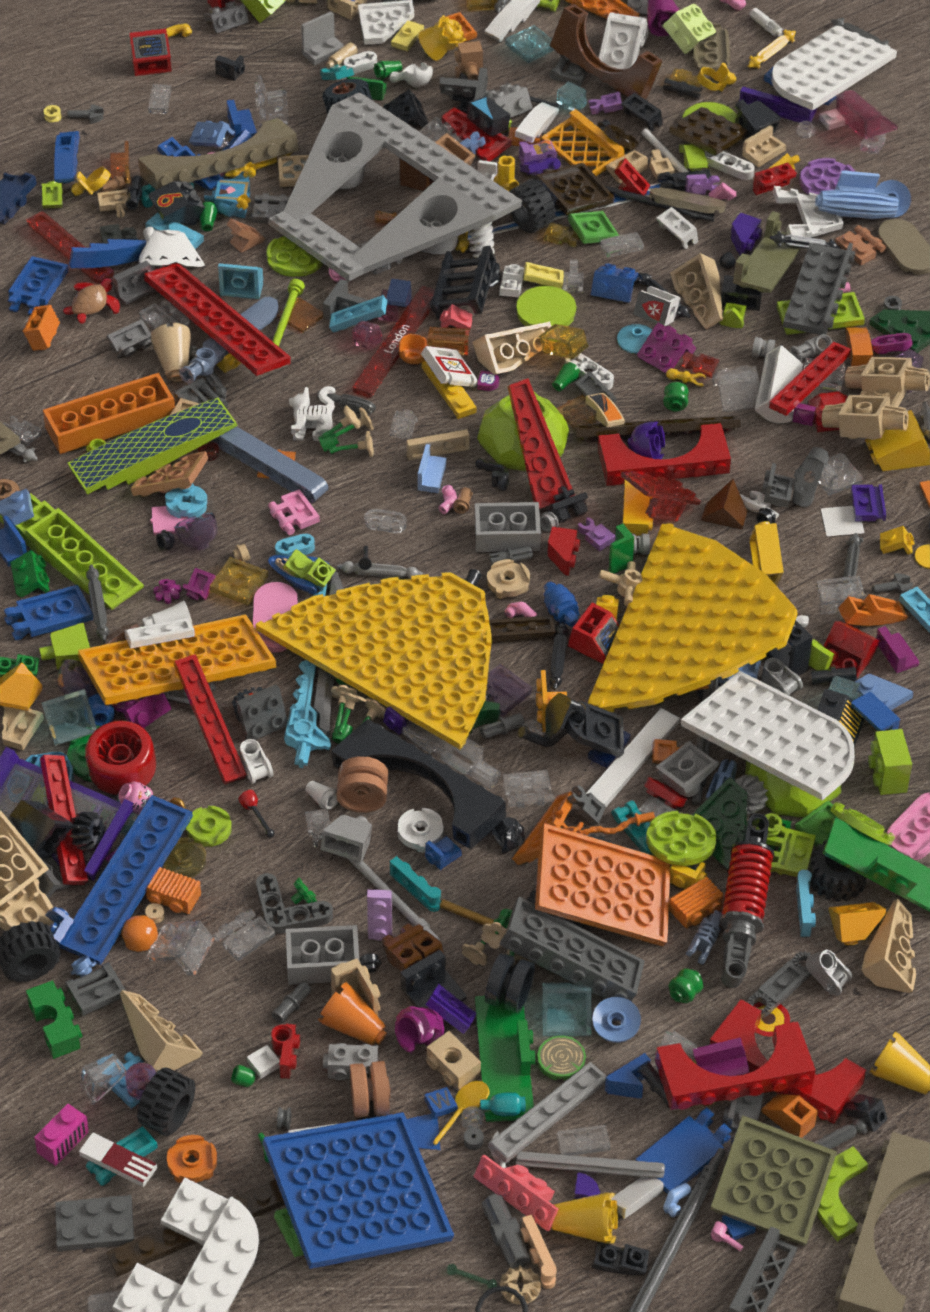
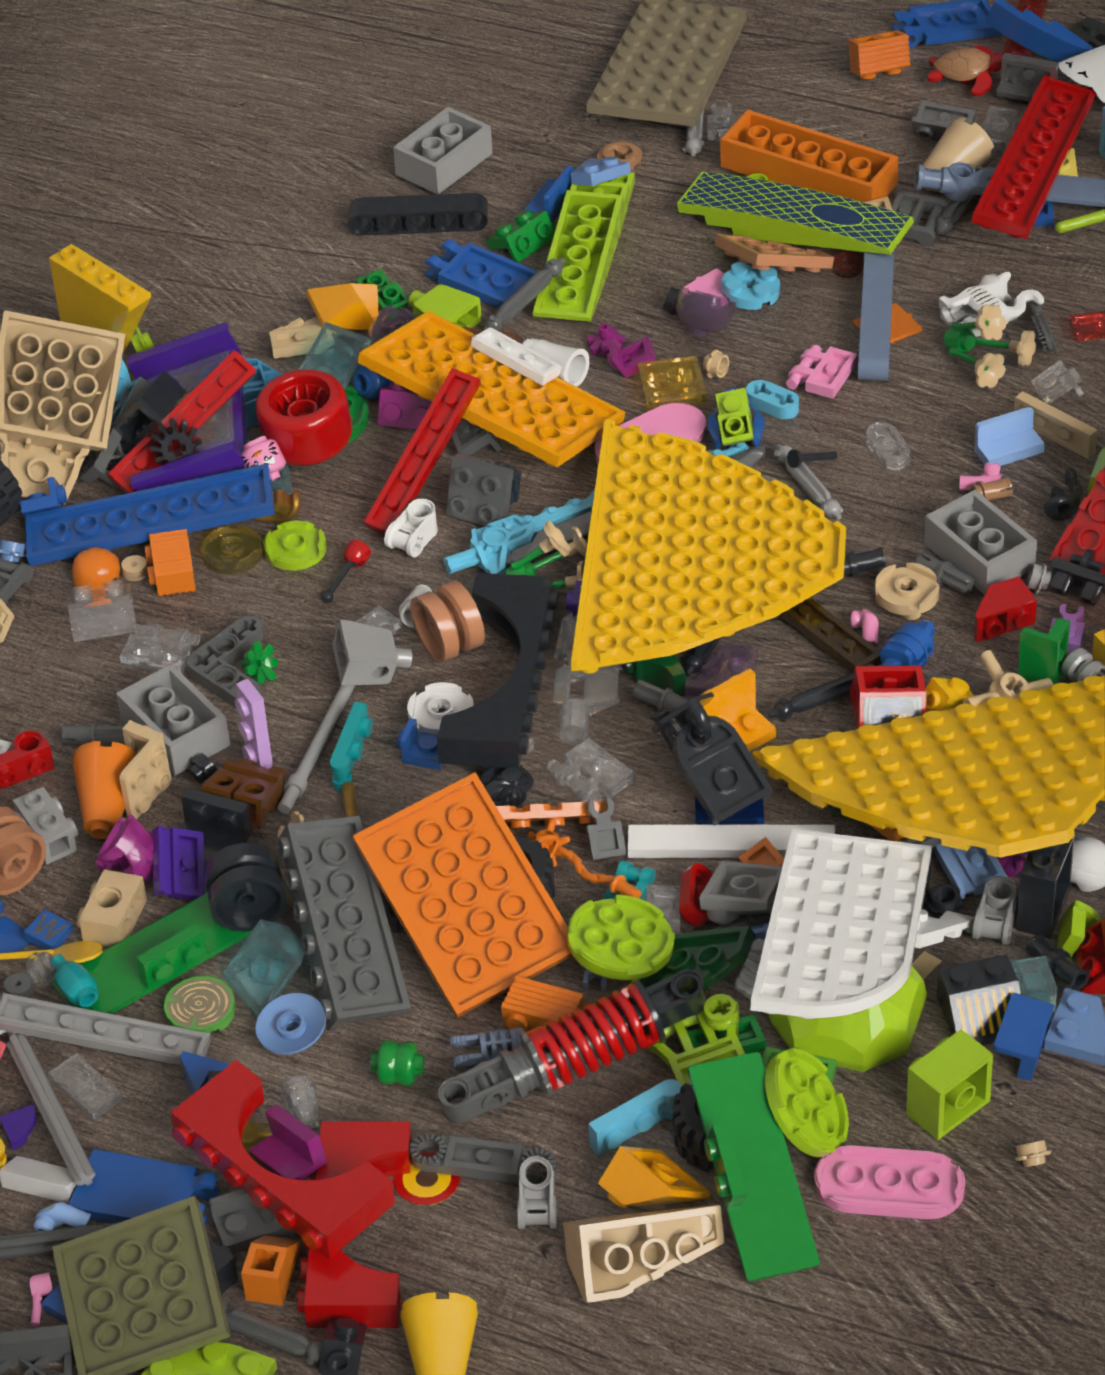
camera: 60 degrees right, 5 degrees down
(684, 876) = (572, 979): yellow bracket -> none

